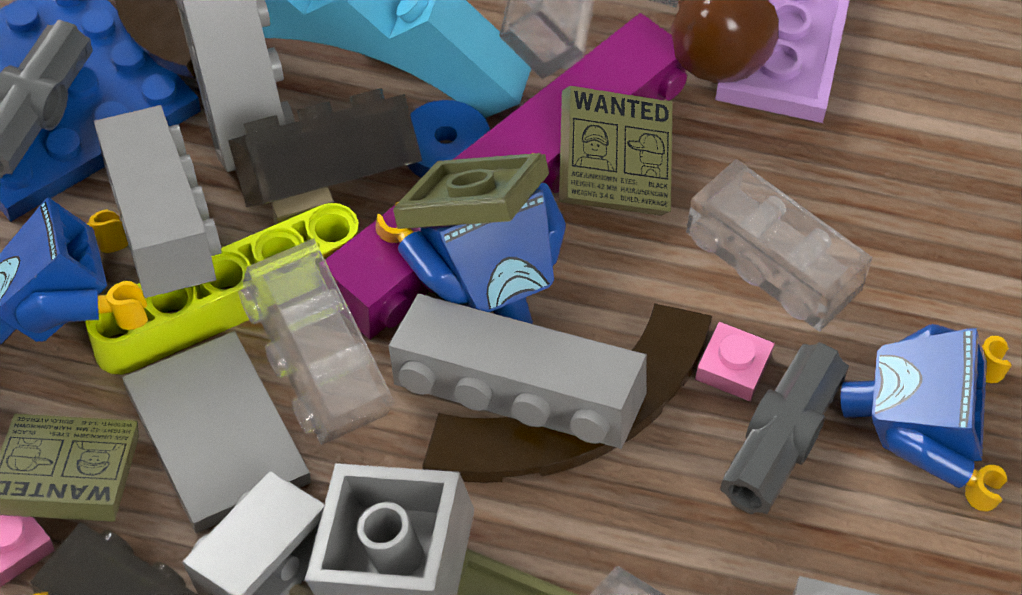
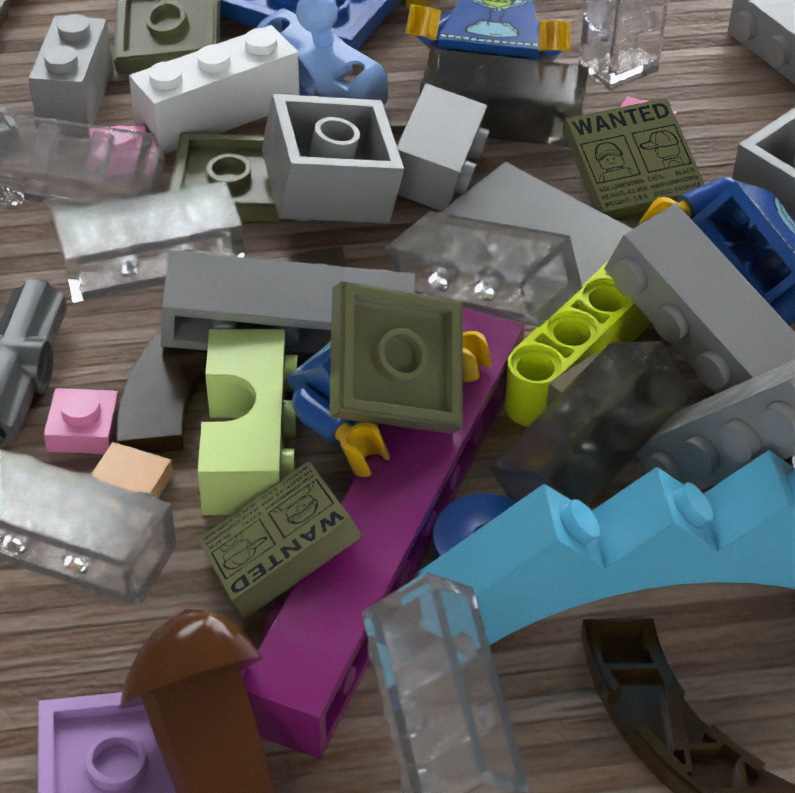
camera: 160 degrees right, 10 degrees down
(595, 526) = (128, 241): none -> clear brick
(608, 252) = (250, 384): none -> yellowish green arch
(711, 286) = (134, 469): none -> light nougat tile

